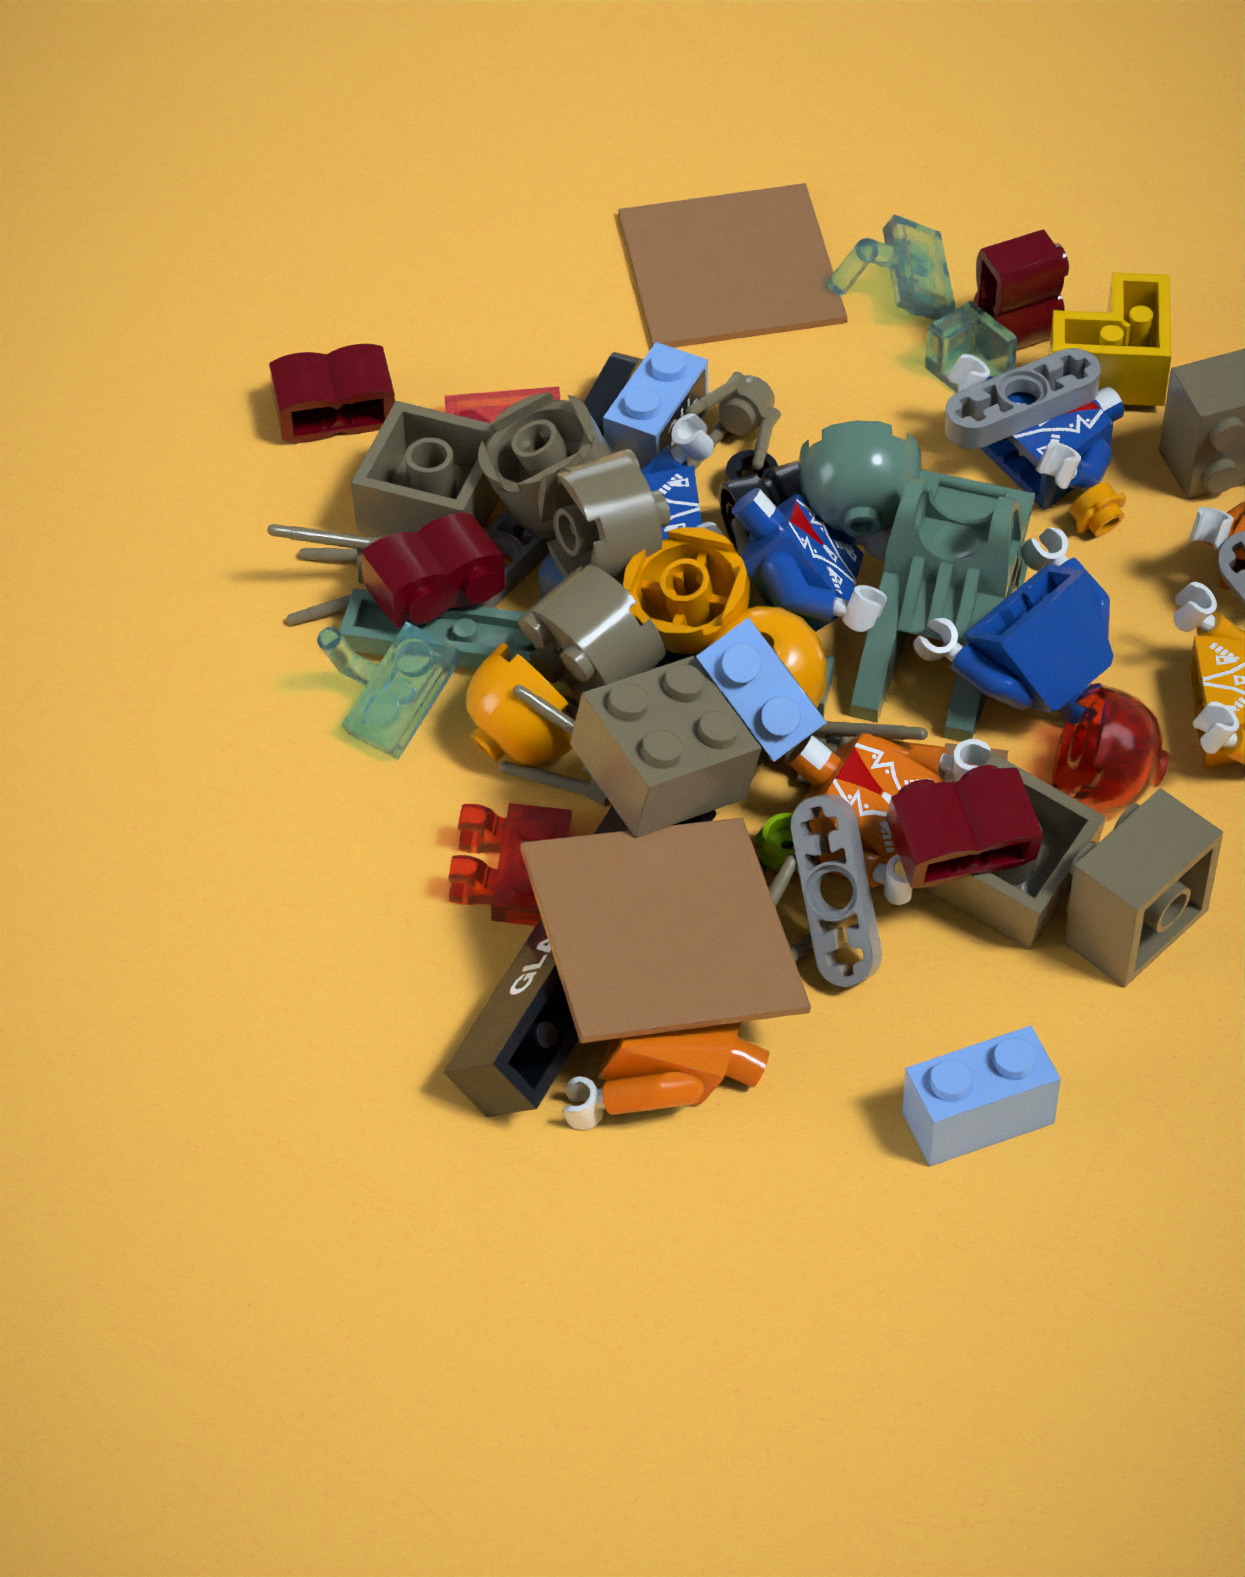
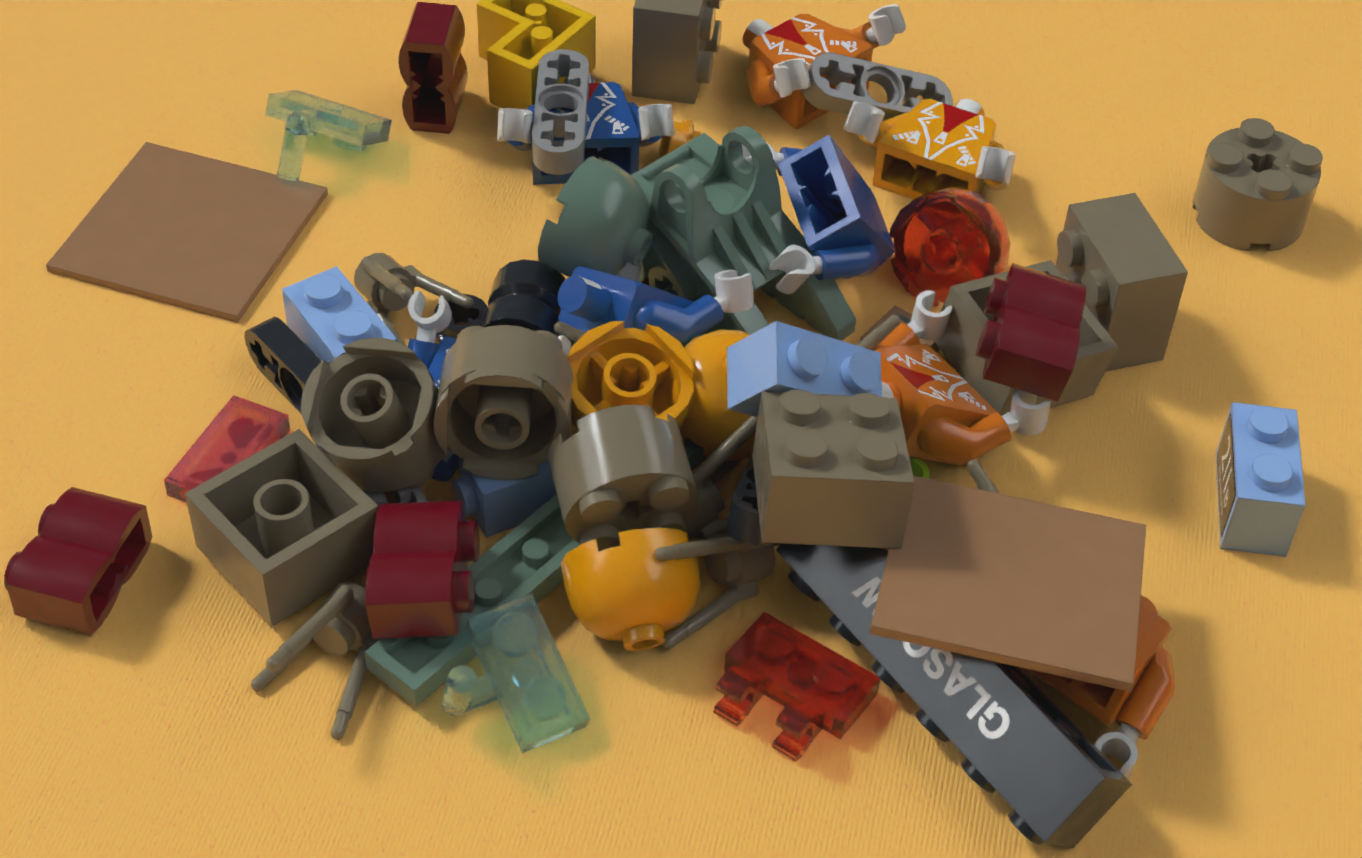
camera: 65 degrees left, 5 degrees down
(860, 935) = (1038, 459): light grey beam -> none
(972, 333) = (451, 131): clear light blue panel -> none

